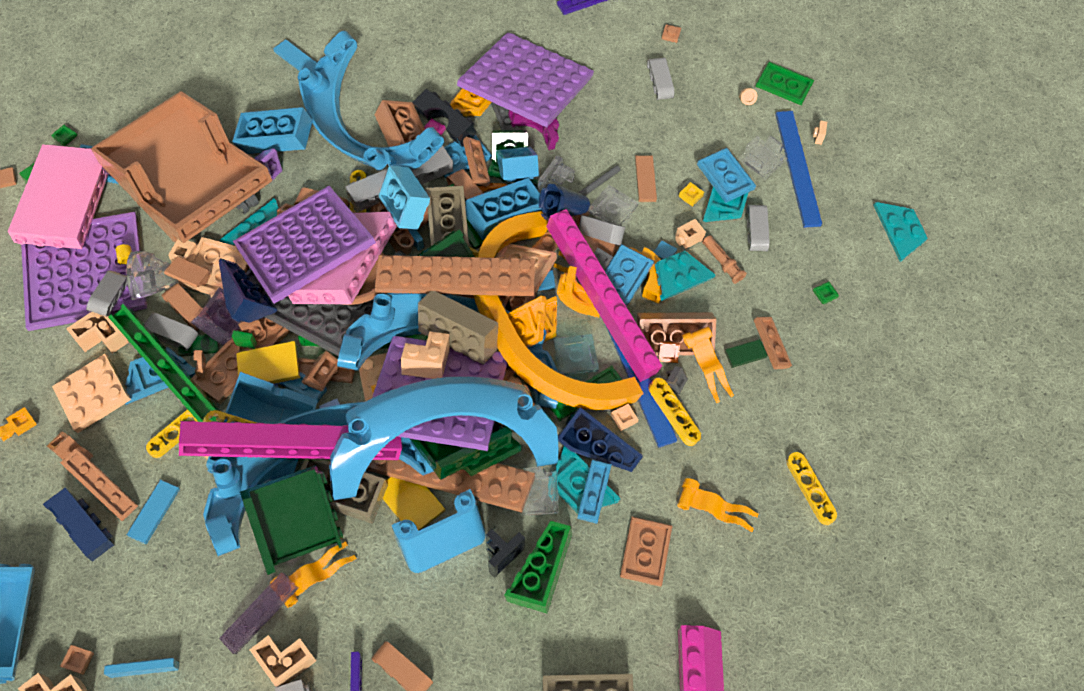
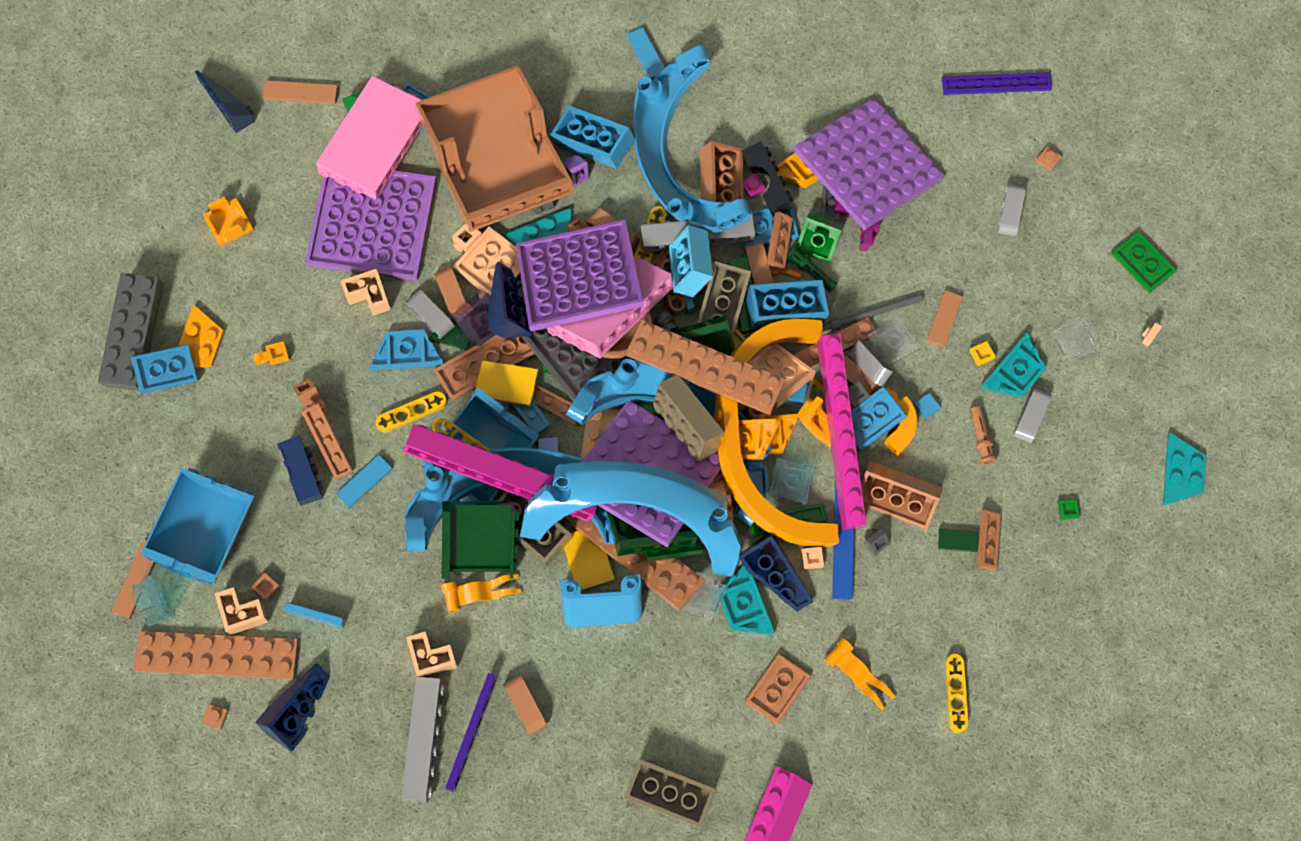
camera: 25 degrees right, 10 degrees up
(64, 135) = (394, 64): green tile -> none
(91, 393) = (344, 349): light nougat plate -> none
(107, 293) = (386, 258): light grey beam -> none
(122, 253) = (412, 221): yellow hose -> none
(146, 275) = (428, 251): clear brick -> none
(163, 363) = (416, 350): green tile -> none
(187, 272) = (464, 262): nougat slope -> none
(201, 363) = (448, 355): nougat tile -> none
(244, 339) = (493, 350): green tile -> none
(253, 327) = (502, 343): nougat plate -> none
(258, 613) = (424, 608): clear purple plate -> none
(321, 371) = (552, 407): nougat slope -> none
(426, 360) = (648, 441): light nougat brick -> none
(502, 552) = (648, 641): black bracket -> none
(517, 163) = (818, 259): dark azure slope -> none
(538, 578) = (674, 671): green wedge -> none
(556, 174) = (845, 293): clear panel -> none
(558, 198) = (843, 320): dark blue cone -> none
(594, 491) = (753, 617): dark azure tile -> none
(669, 352) = (883, 511): tile -> none
(676, 410) = (858, 571): yellow beam -> none
(680, 274) = (929, 437): teal wing -> none
(690, 234) = (964, 393): light nougat brick -> none
(707, 360) = (915, 533): light orange flag -> none
(726, 175) = (1026, 347): dark azure tile -> none
(748, 96) = (1095, 264): light nougat tile -> none
(798, 169) = (1108, 365): blue tile -> none

